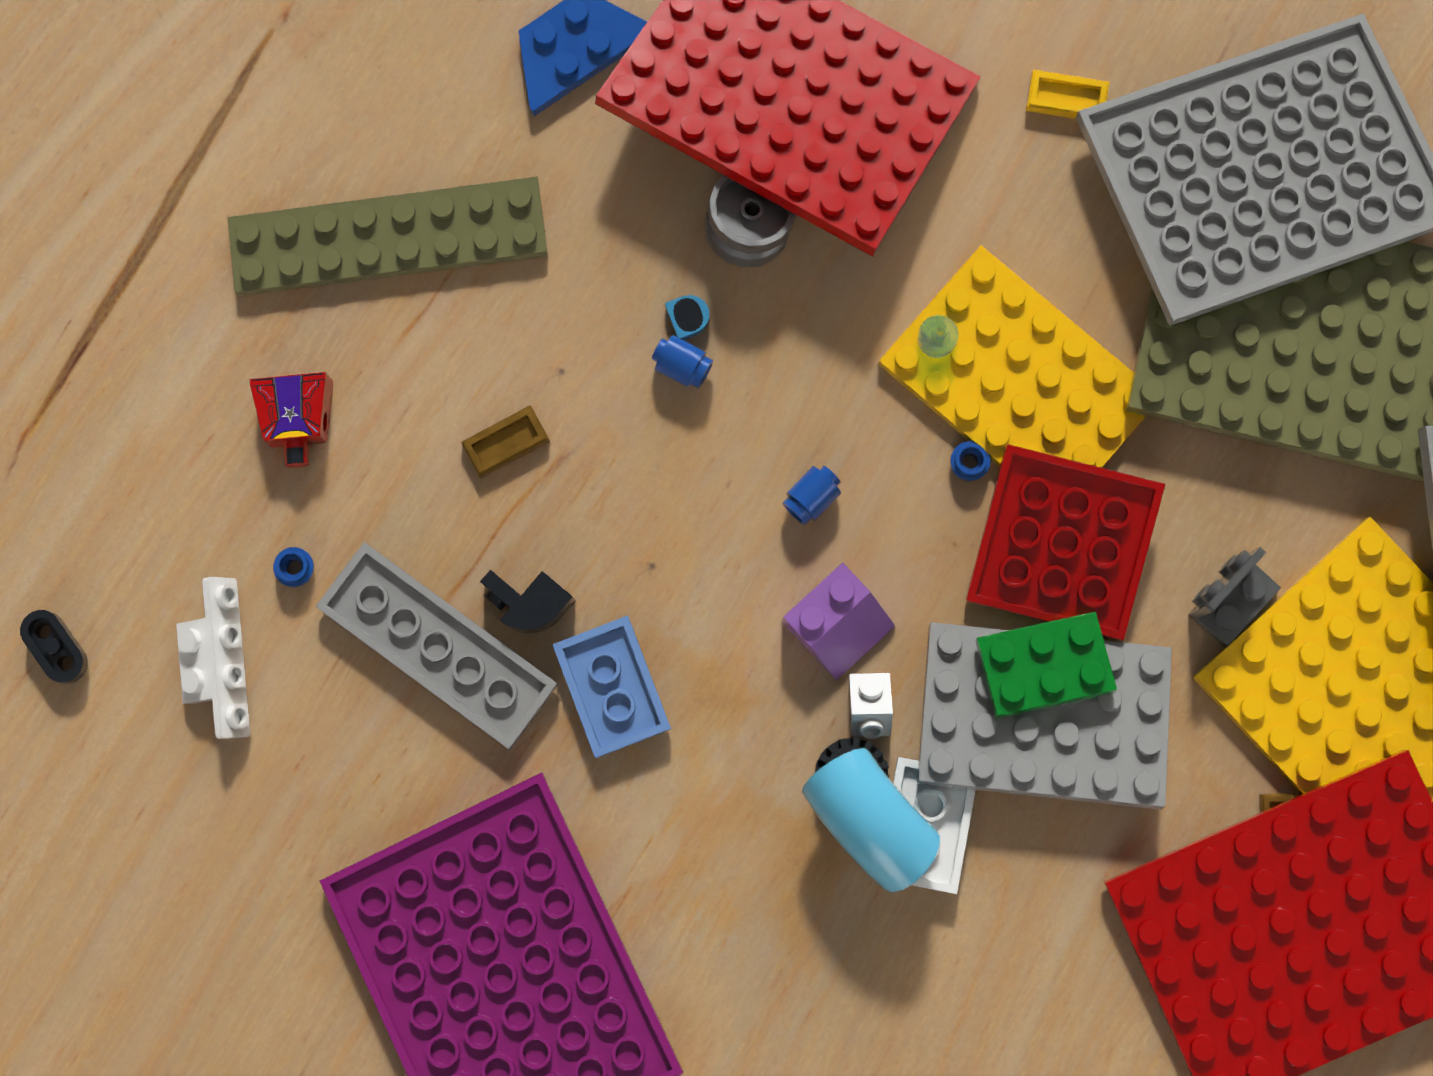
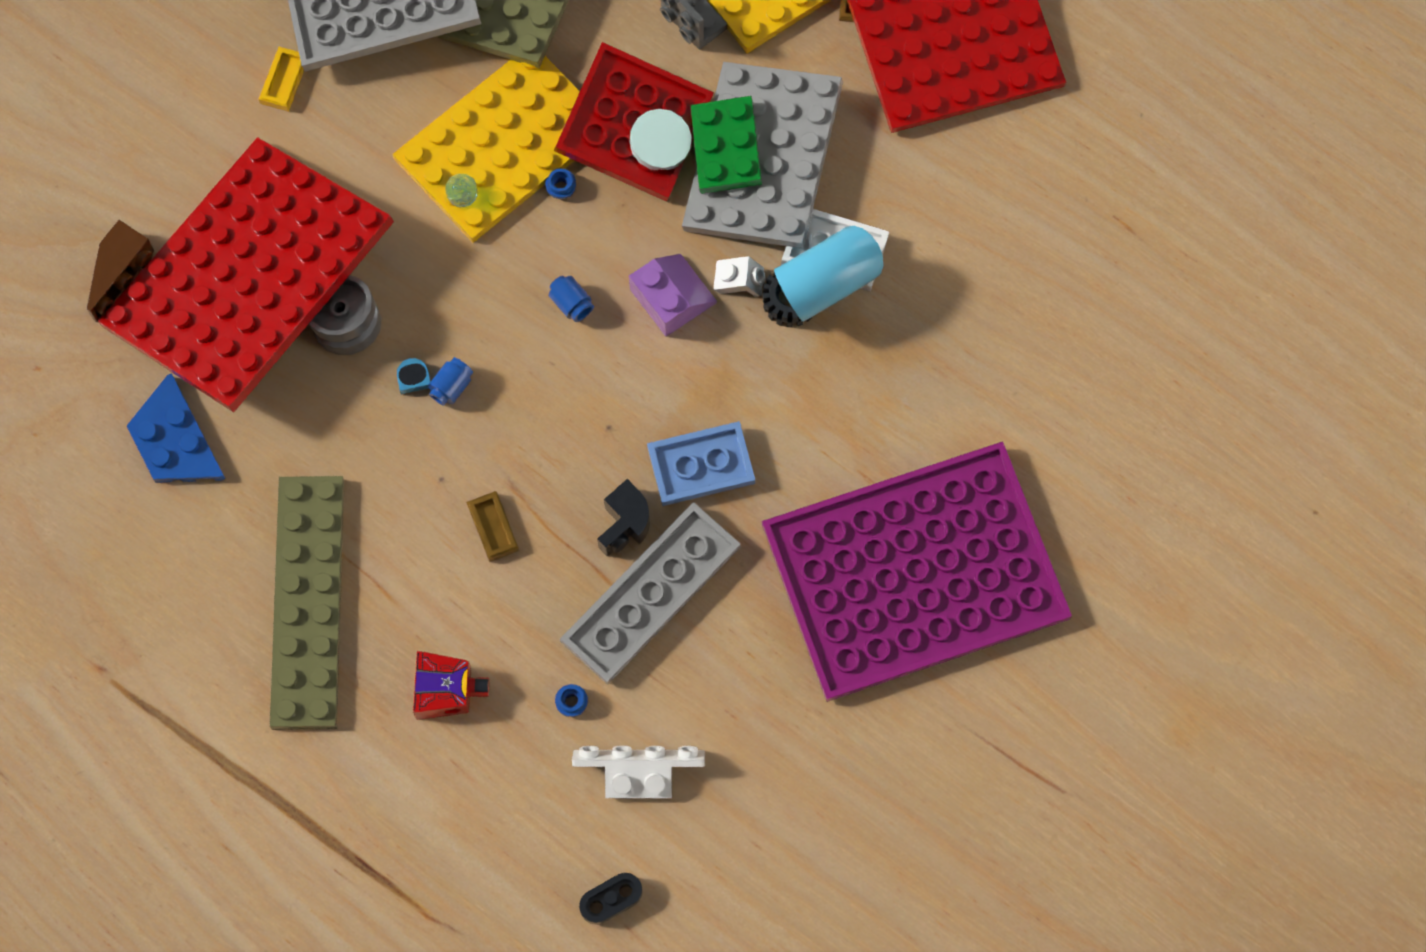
camera: 85 degrees left, 10 degrees down
(1041, 578) = (660, 139): none -> light aqua tile

